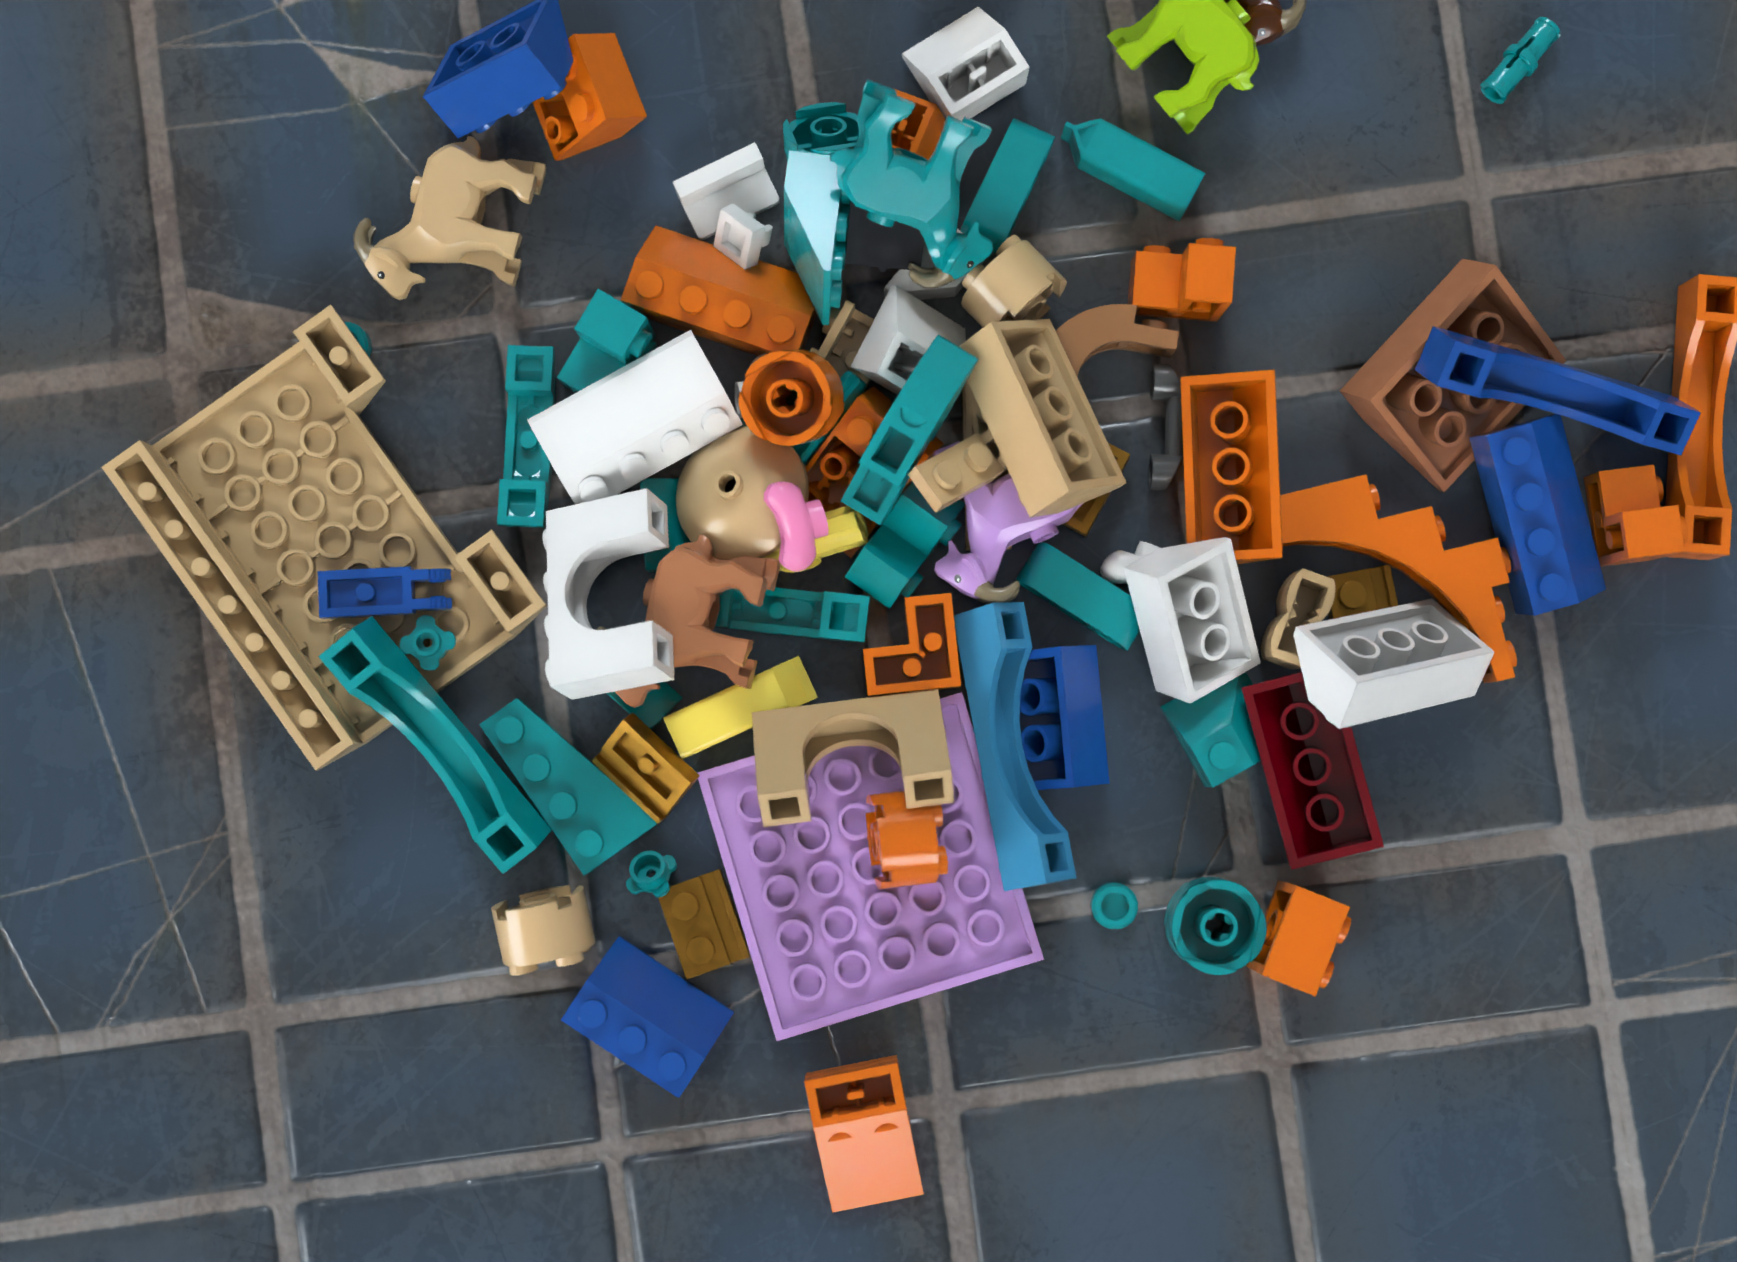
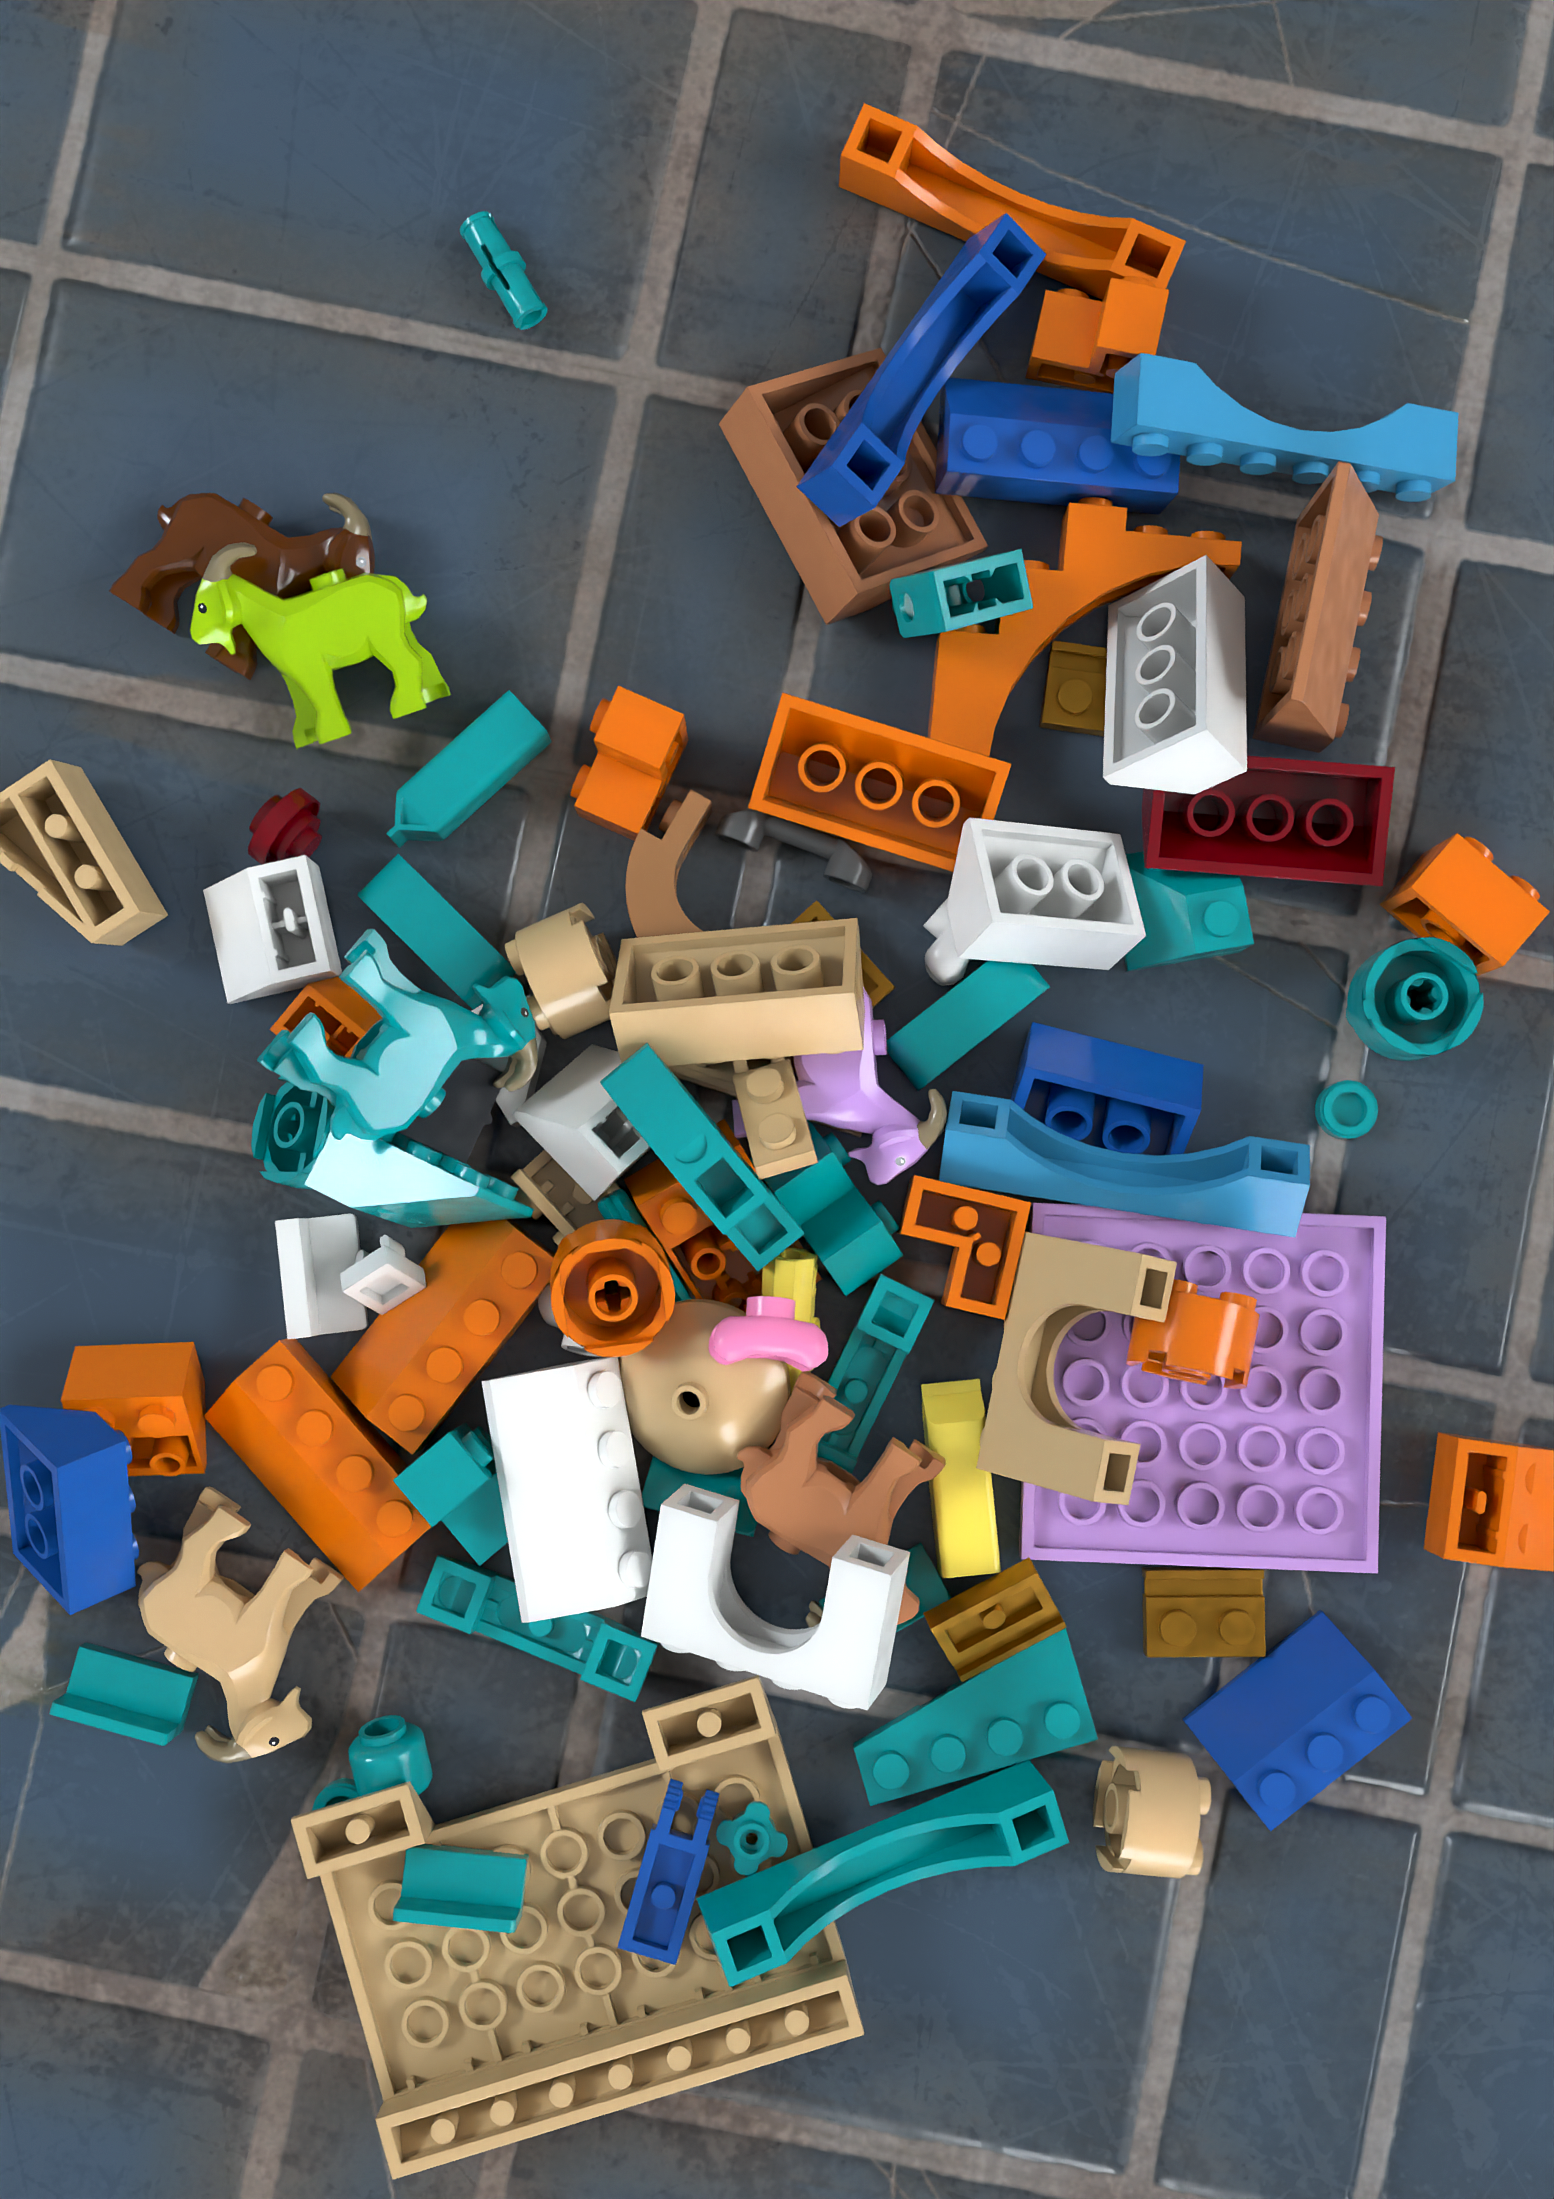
camera: 75 degrees left, 0 degrees up
(323, 446) = (462, 1888): none -> teal panel
(378, 161) = (126, 1695): none -> teal panel
(400, 362) = (388, 1755): none -> teal head
(593, 237) = (319, 1460): none -> orange slope
(643, 865) = (1107, 1657): teal plate -> none
(1045, 48) = (285, 828): none -> dark red plate
(1301, 600) = (1070, 762): tan brick -> none
(1391, 466) = (939, 601): none -> teal torso
(1480, 757) = (1319, 616): none -> nougat slope
(1595, 589) = (1178, 410): none -> dark azure arch

